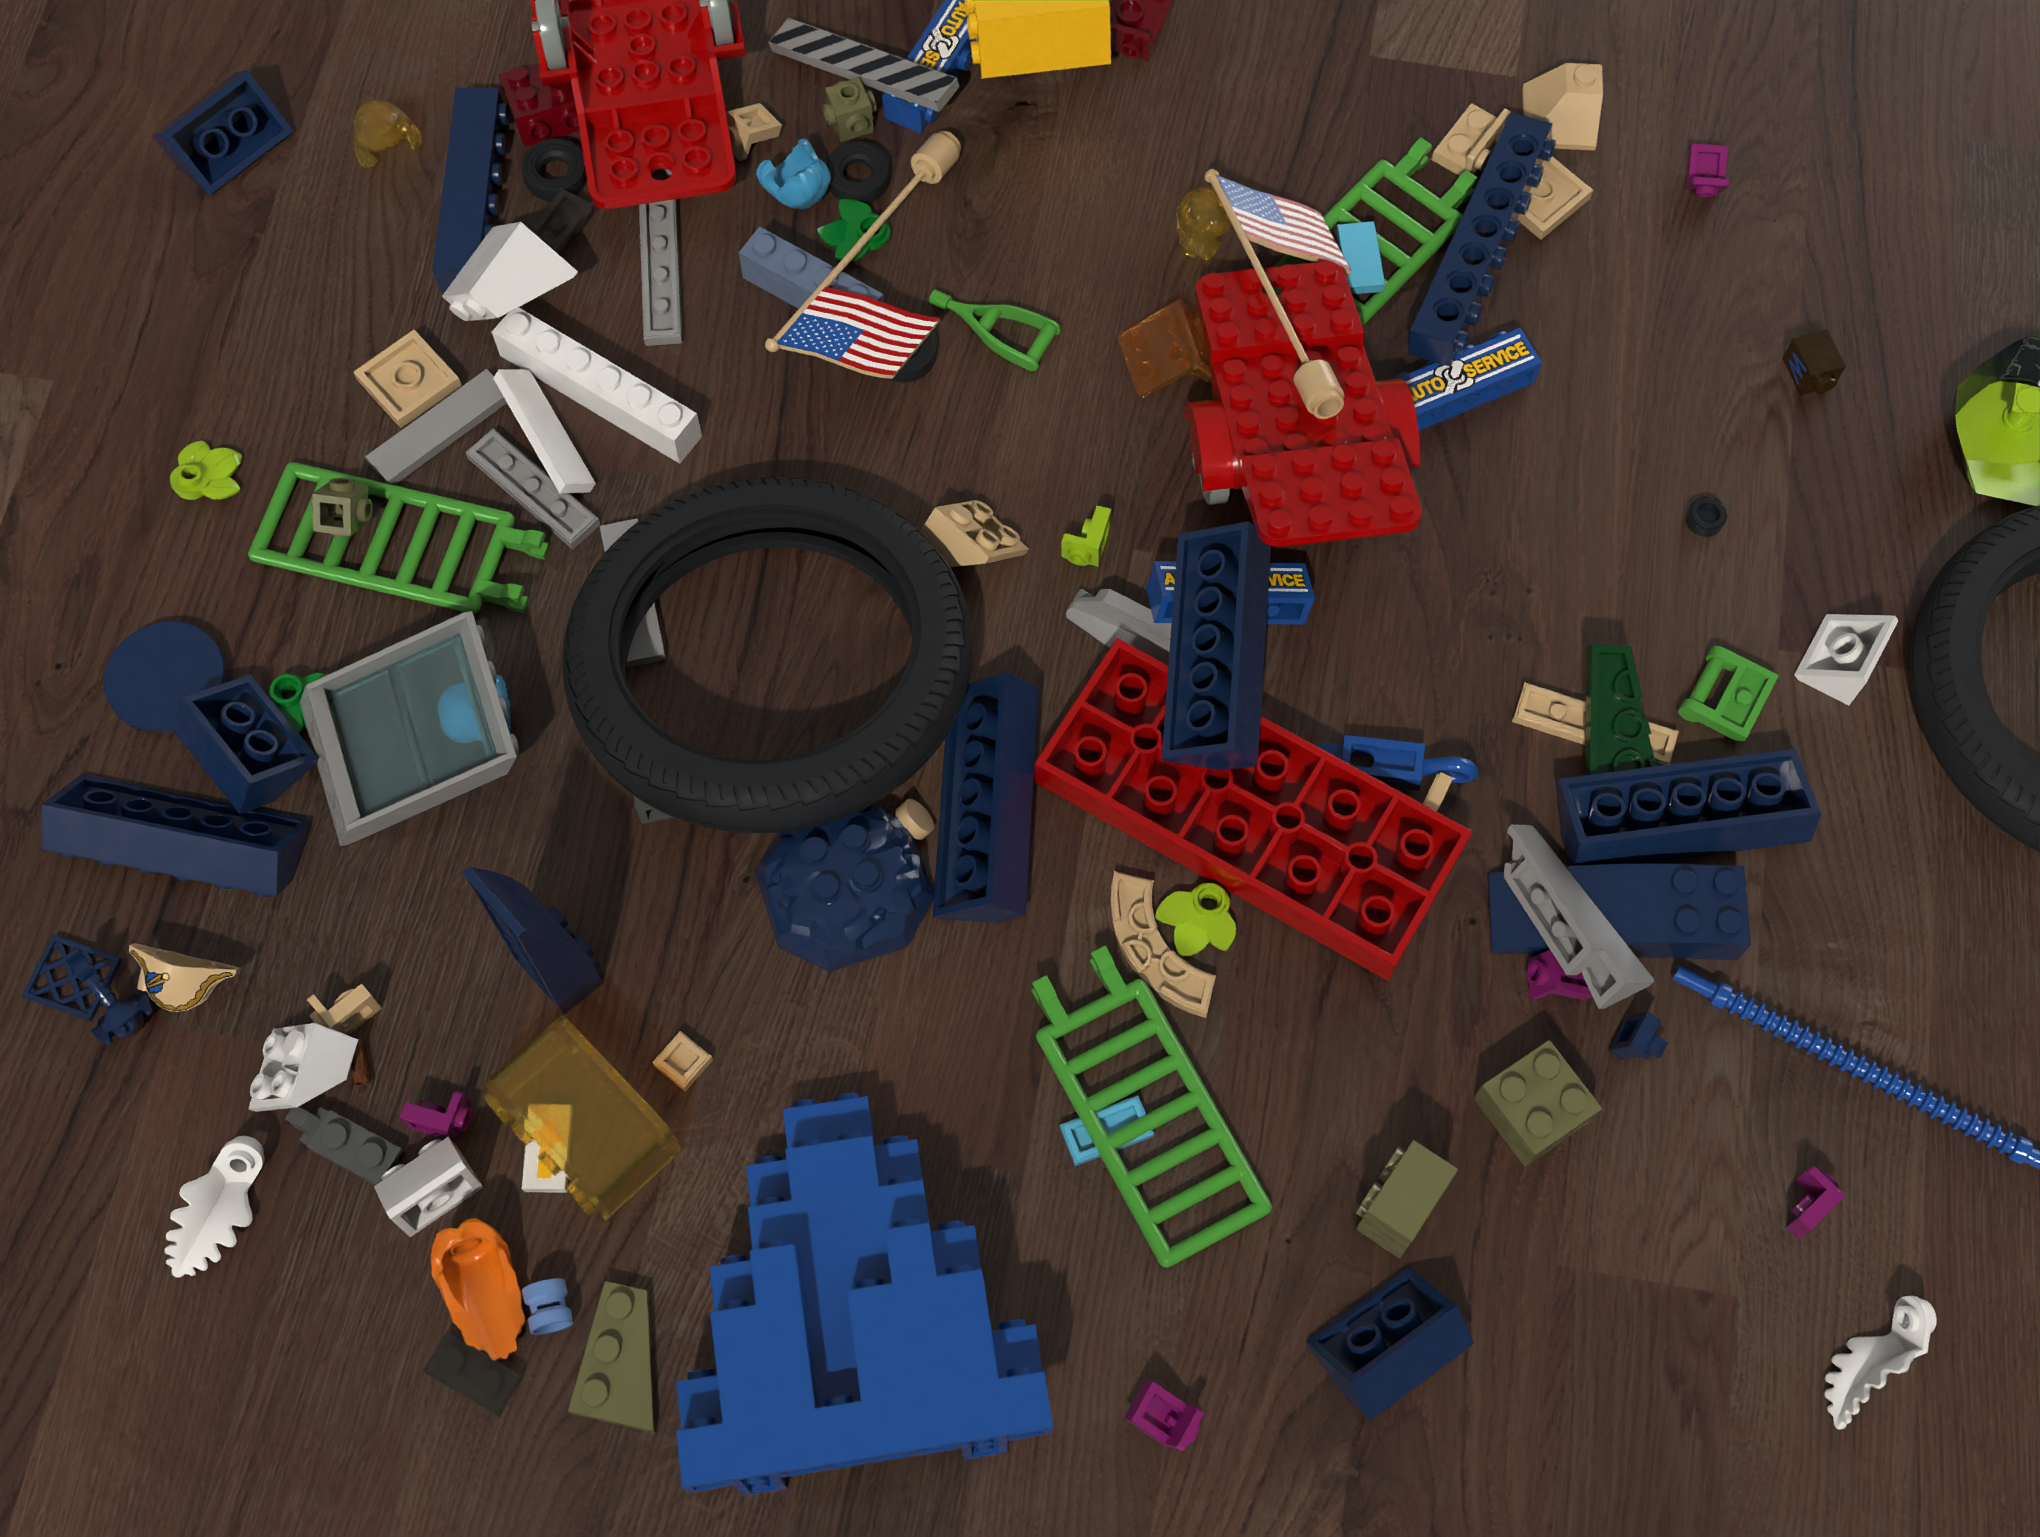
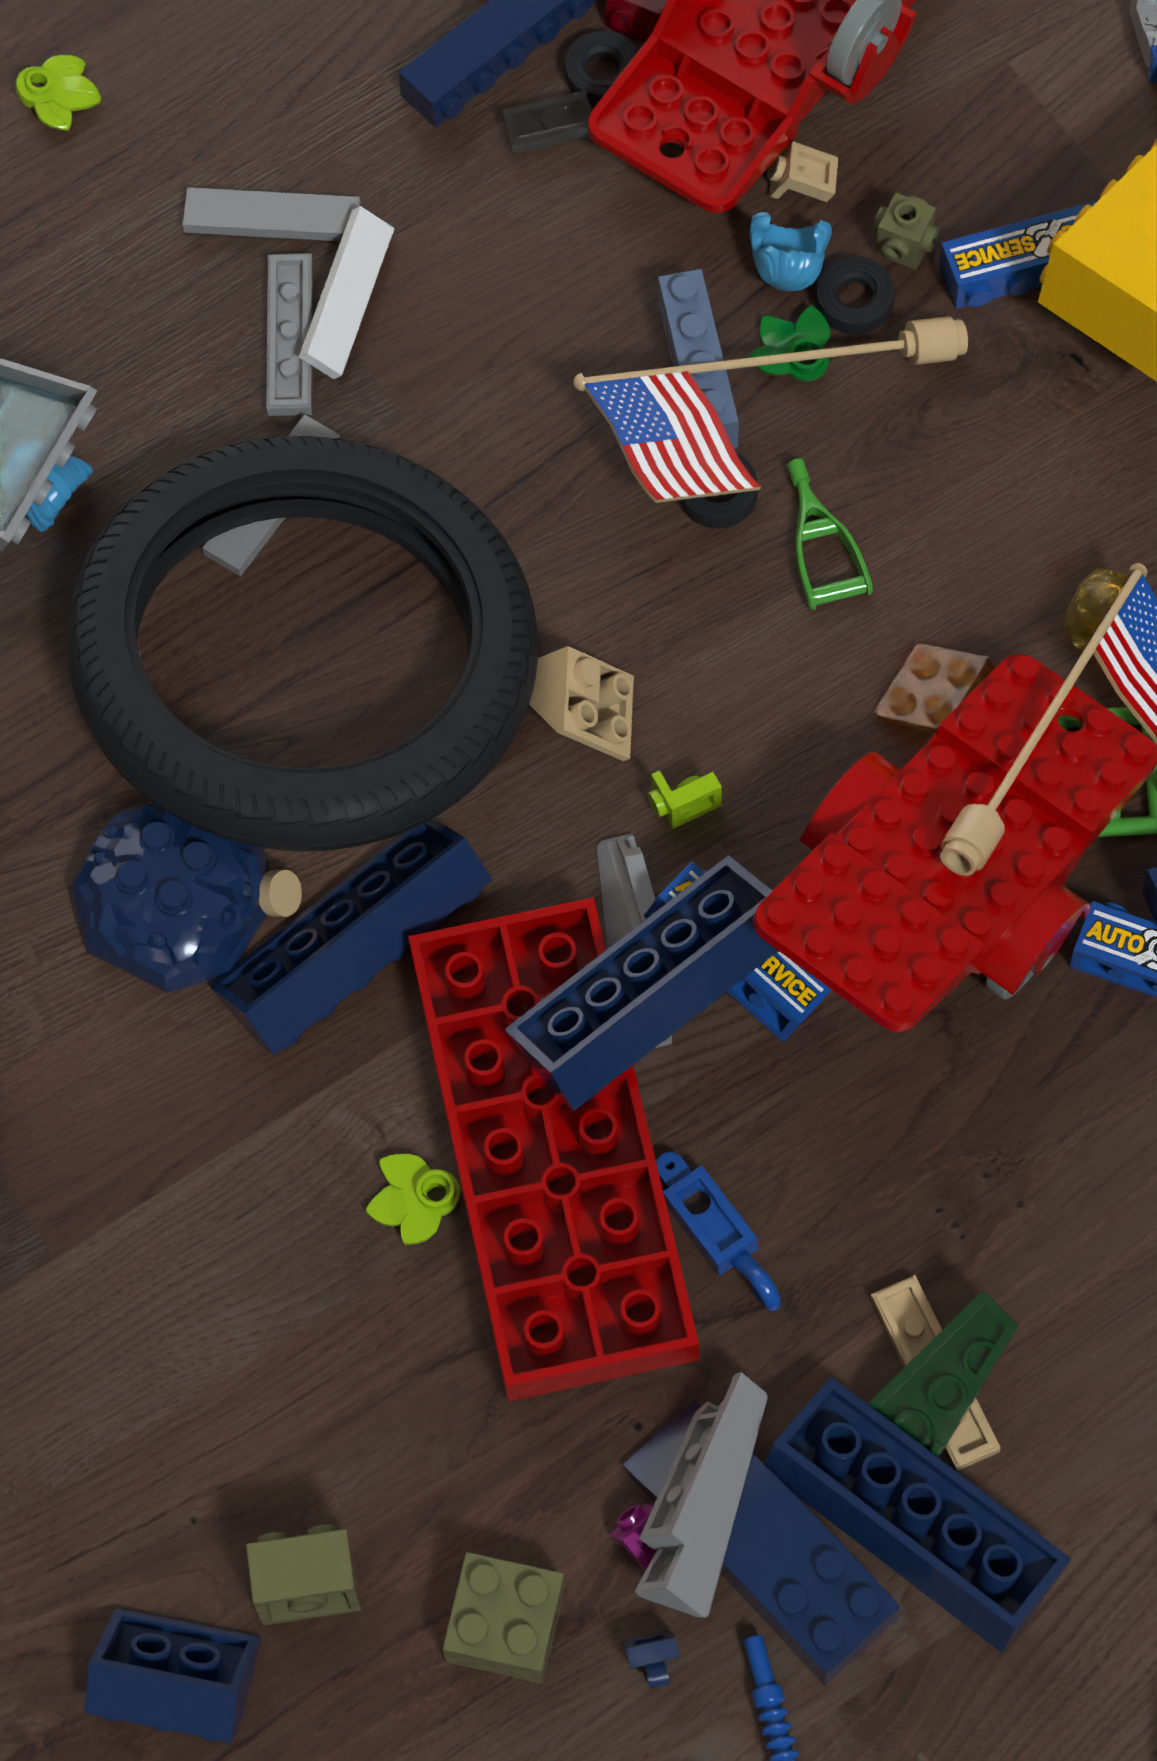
camera: 50 degrees right, 0 degrees up
(341, 507) = (111, 213): olive brick -> none
(407, 378) = (289, 149): tan plate -> none
(482, 590) = (179, 244): bright green bar -> none
(506, 273) = (442, 129): white slope -> none
(598, 384) = (429, 291): white brick -> none
(660, 270) = (592, 237): light grey tile -> none
(872, 66) = (958, 200): light grey tile -> none
(1108, 1143) = (249, 1335): bright green bar -> none
(1112, 1118) = (152, 1290): medium azure tile -> none
(1148, 953) = (346, 1181): tan tile -> none
(1438, 791) = (717, 1293): tan tile -> none
(1741, 699) = (1086, 1476): bright green plate -> none

